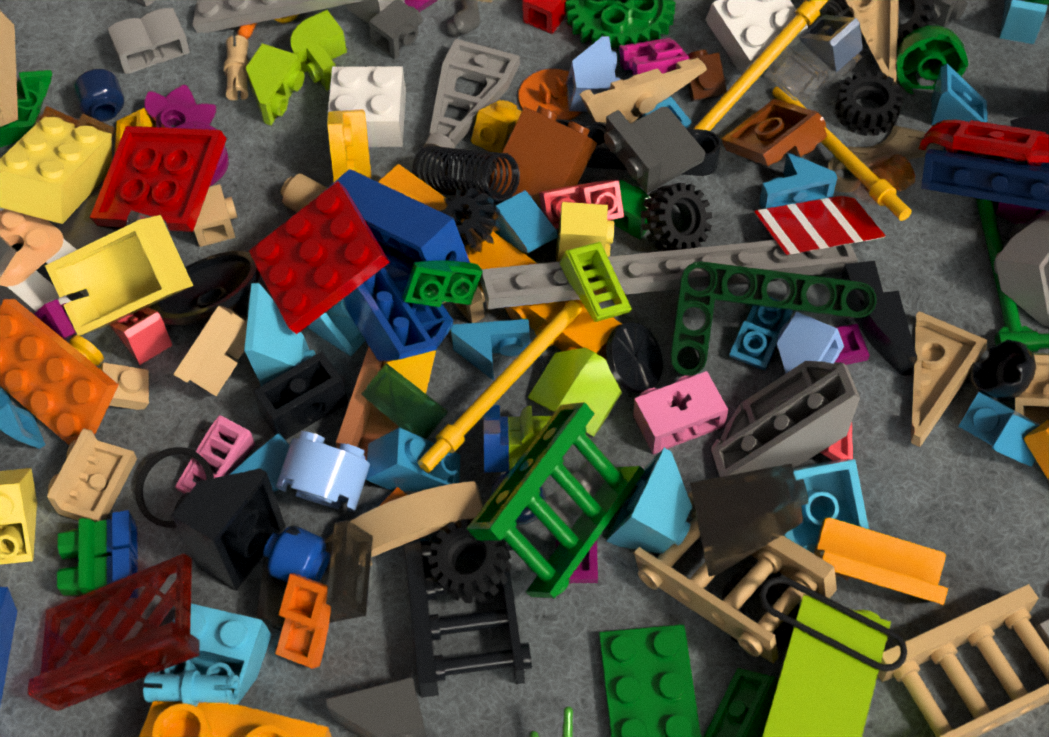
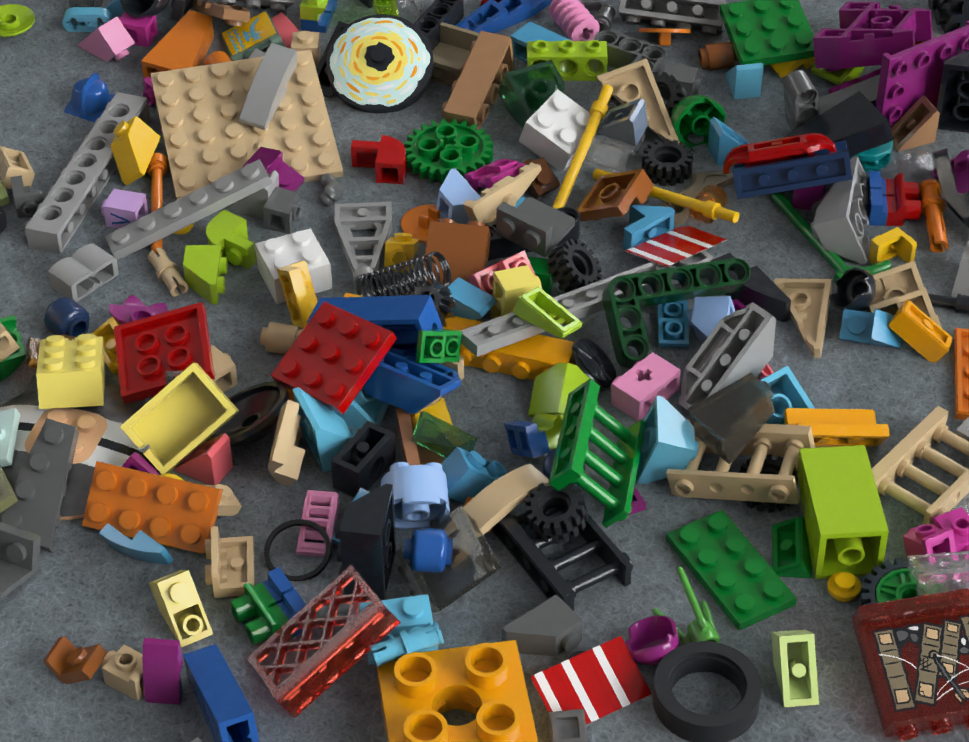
camera: 25 degrees left, 15 degrees down
(305, 621) = (455, 588): orange slope -> none
(452, 436) = (498, 441): yellow bar -> none
(480, 340) = (480, 387): dark azure slope -> none
(883, 667) = (828, 466): black piece -> none

